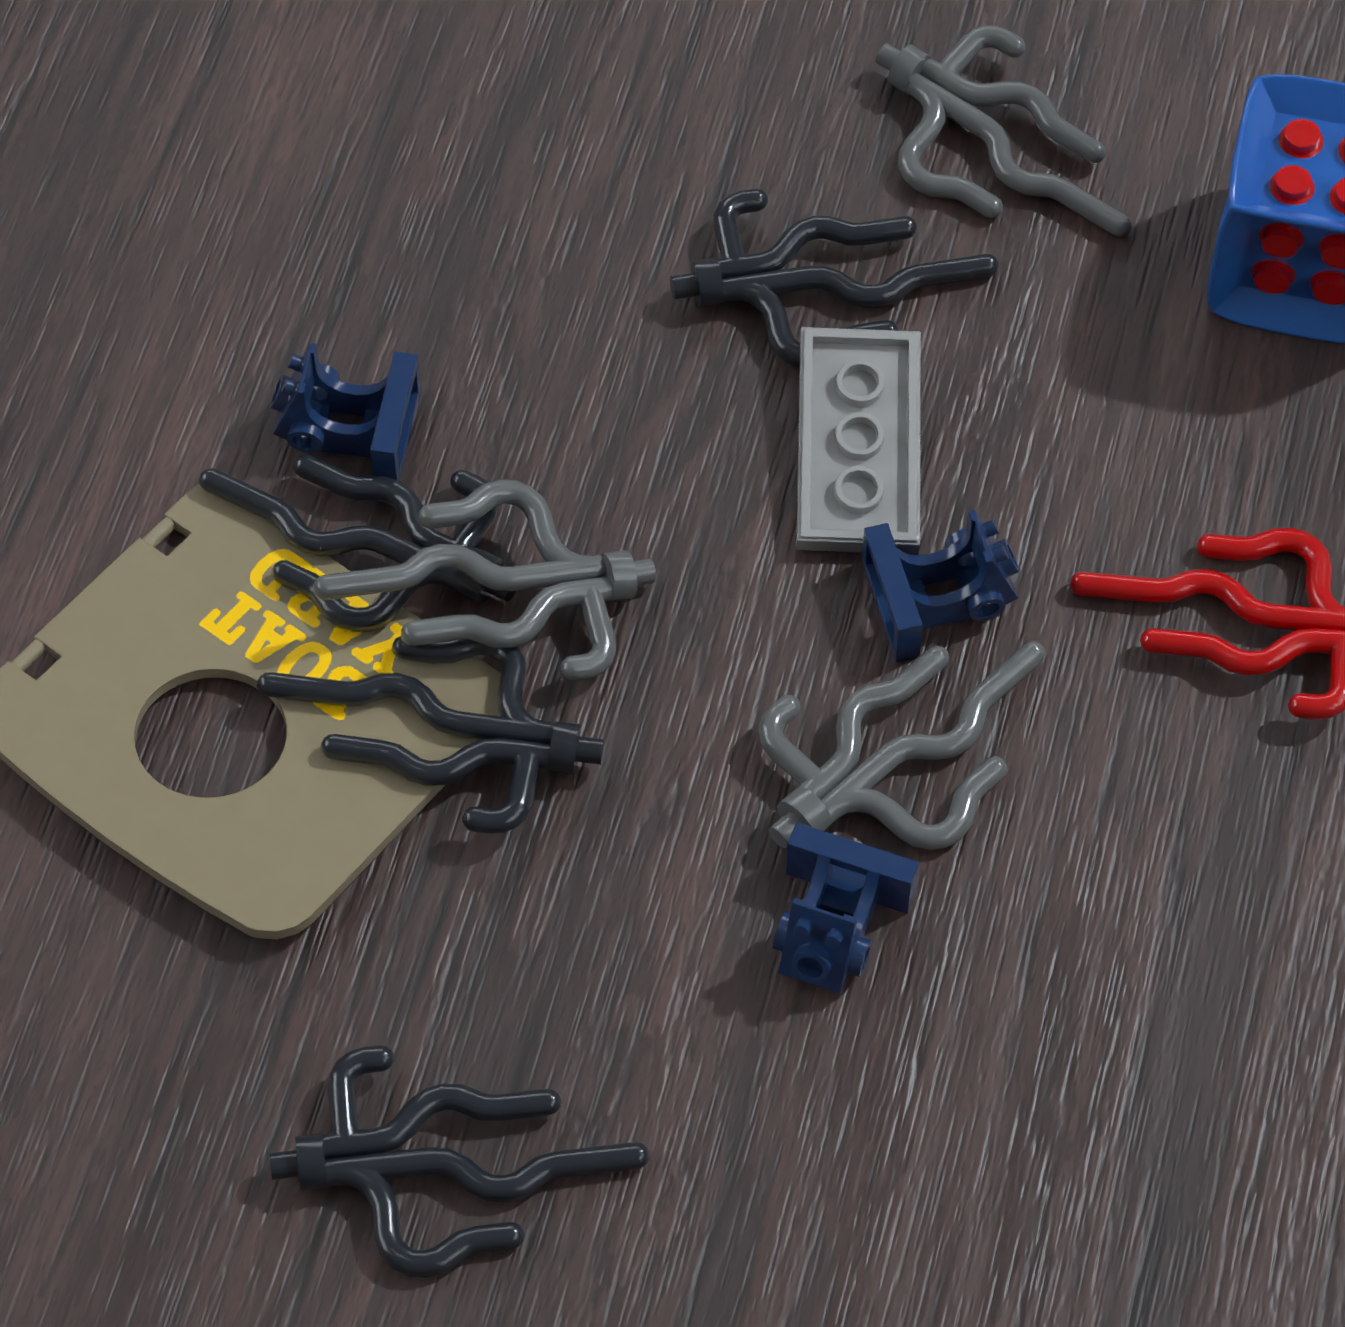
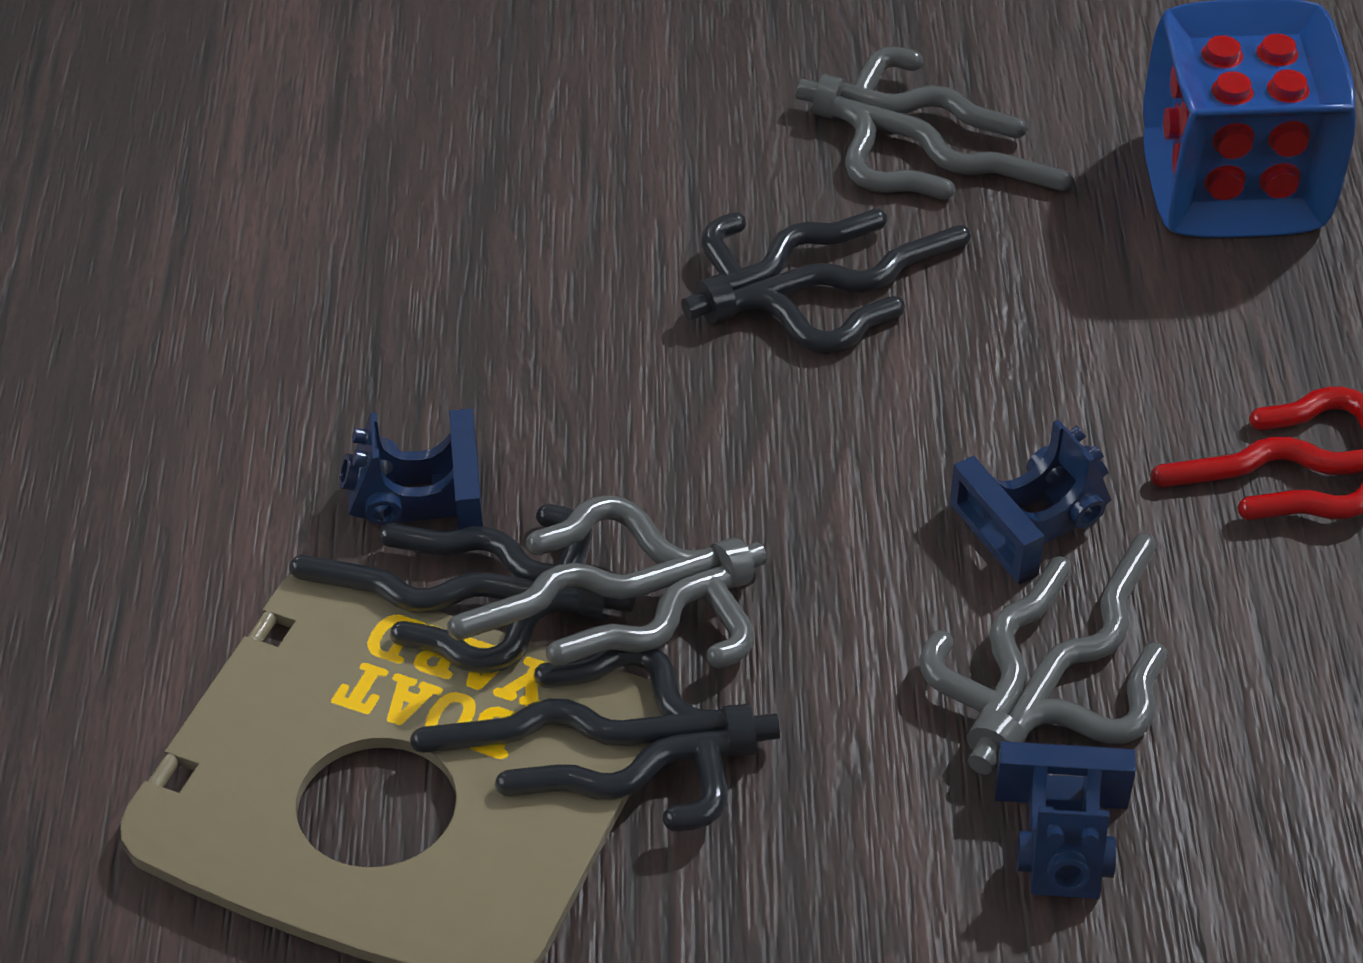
camera: 15 degrees left, 10 degrees down
(858, 437) = (906, 396): light grey tile -> none

